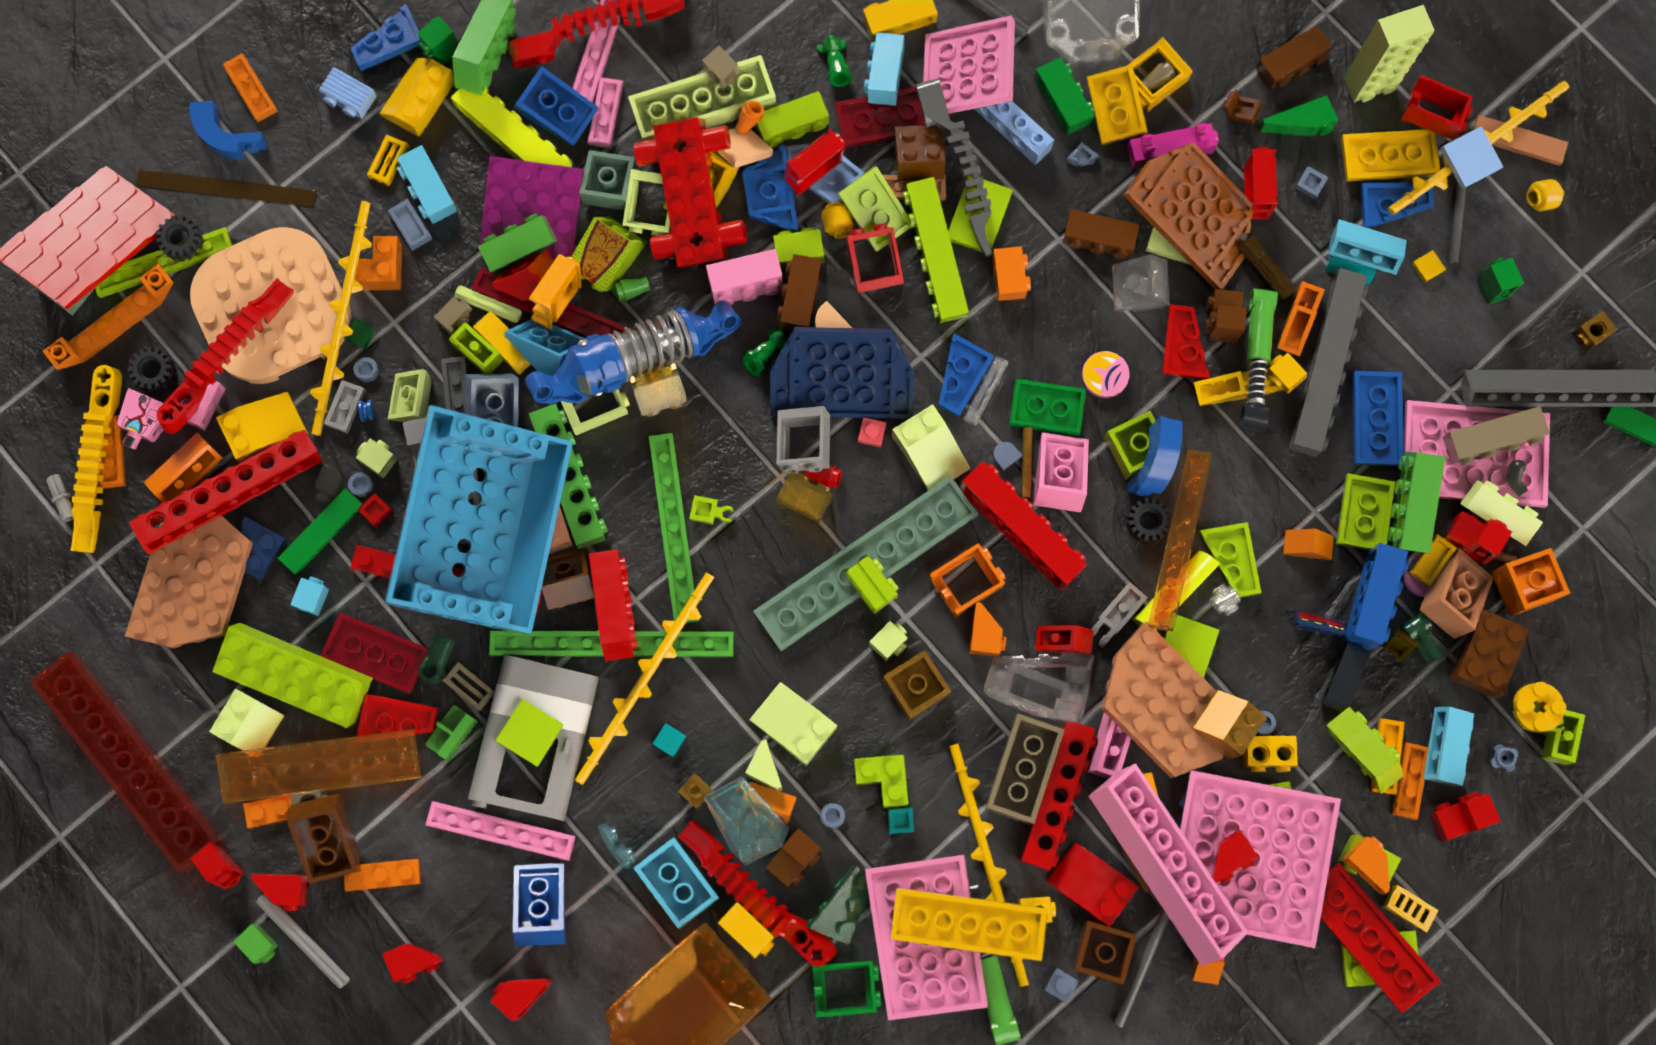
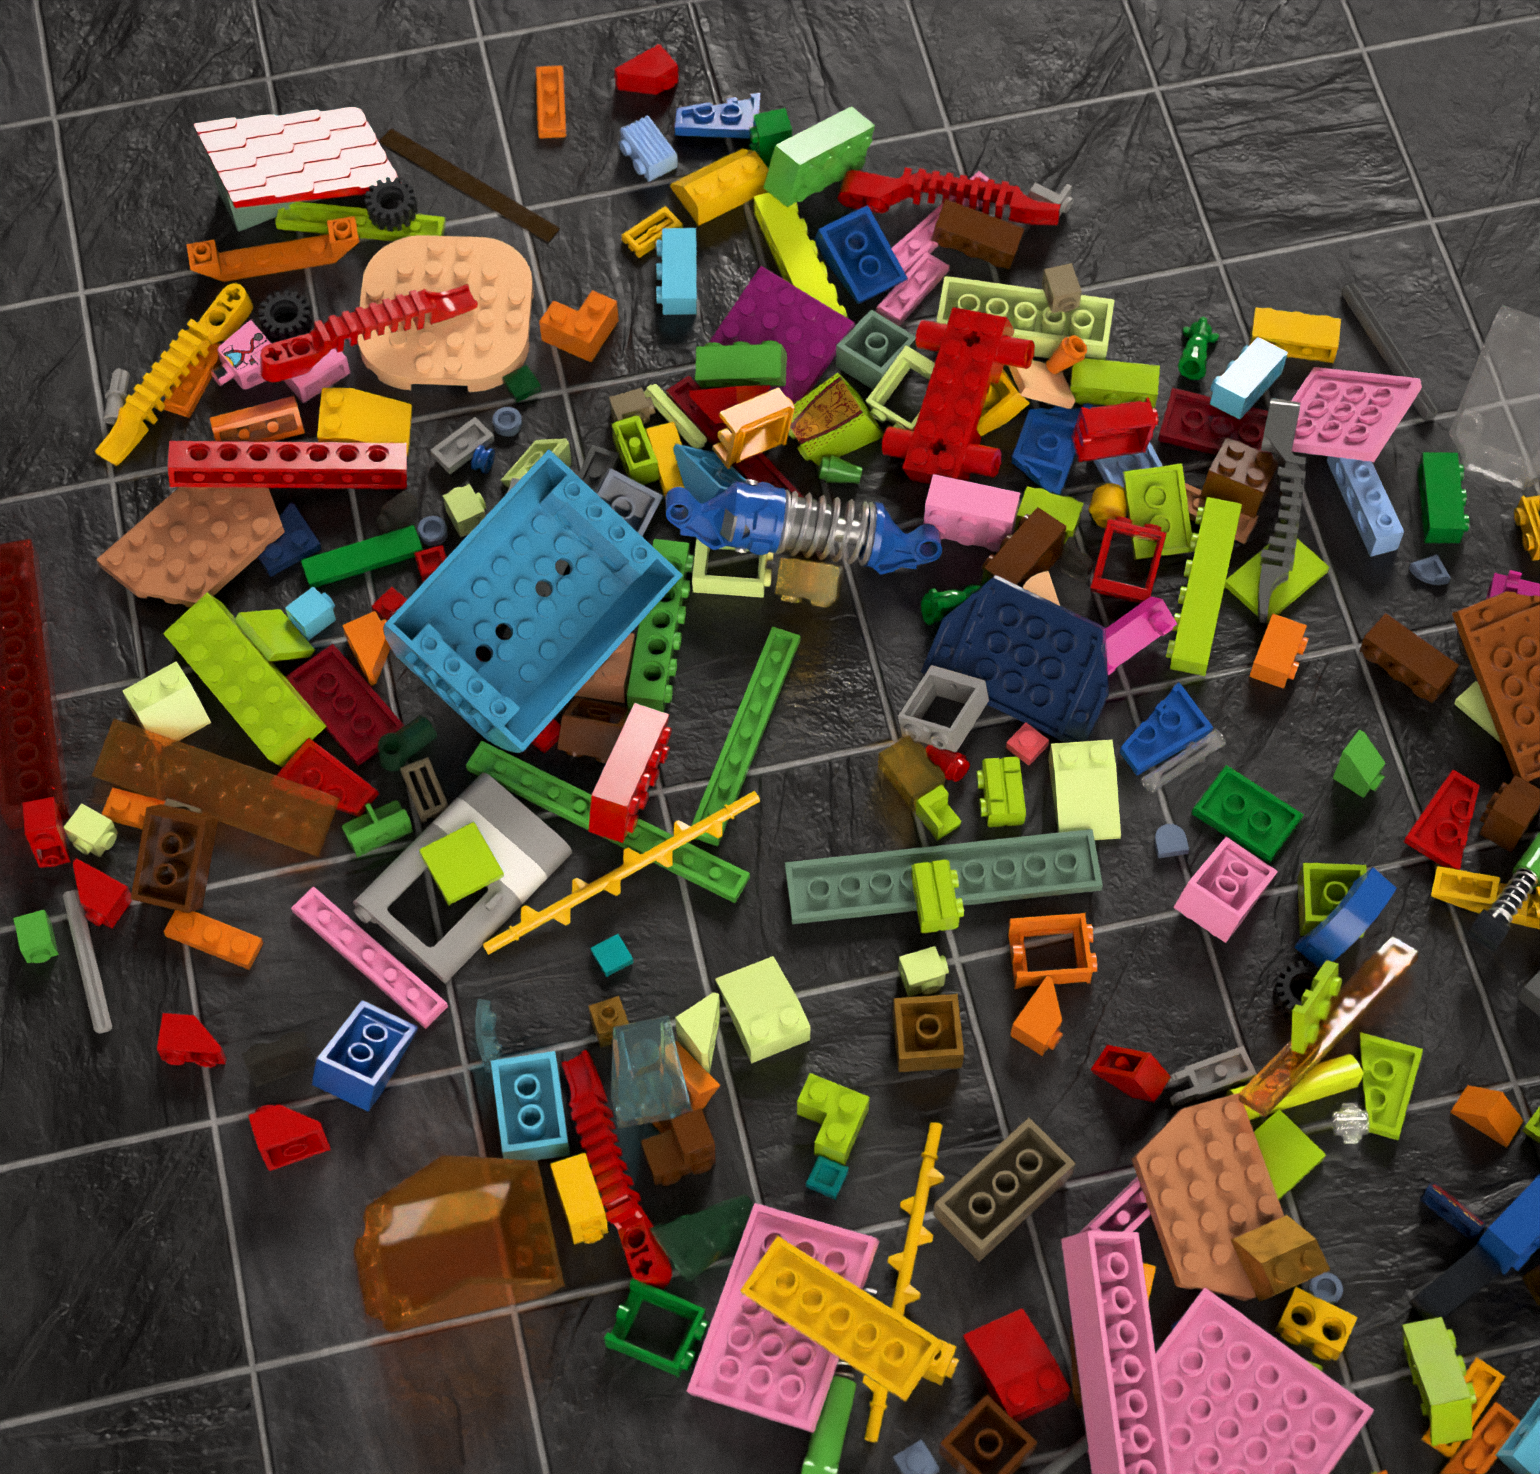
camera: 30 degrees right, 15 degrees down
(231, 146) = (496, 144): blue arch -> none
(248, 846) = (90, 831): none -> yellowish green brick
(294, 629) = (274, 635): none -> lime tile
(312, 27) = (648, 72): none -> red slope
(341, 308) = (504, 364): yellow plant -> none
(367, 598) = (368, 644): none -> orange slope
(409, 224) = (638, 303): sand blue tile -> none
(631, 46) = (977, 234): none -> reddish brown brick
(706, 510) = (793, 734): lime plate -> none
(832, 815) = (751, 1131): sand blue tile -> none
(838, 518) = (936, 813): none -> lime panel
(874, 478) = (1002, 791): none -> lime brick
(907, 310) = (1137, 631): none -> dark pink brick
(1022, 526) = (1147, 921): red brick -> none
(1026, 463) = (1190, 861): pearl gold bar -> none
(1032, 853) = (1082, 1181): red brick -> none
(1075, 688) = (1089, 1136): clear windscreen -> none
(1105, 374) = (1335, 811): tile -> none
(1108, 335) = (1360, 766): none -> bright green slope
(1117, 104) = (1499, 531): yellow tile -> none
(1141, 284) = (1429, 732): clear slope -> none
(1168, 535) = (1314, 1006): none -> lime wing
(1232, 854) = (1202, 1407): red slope -> none

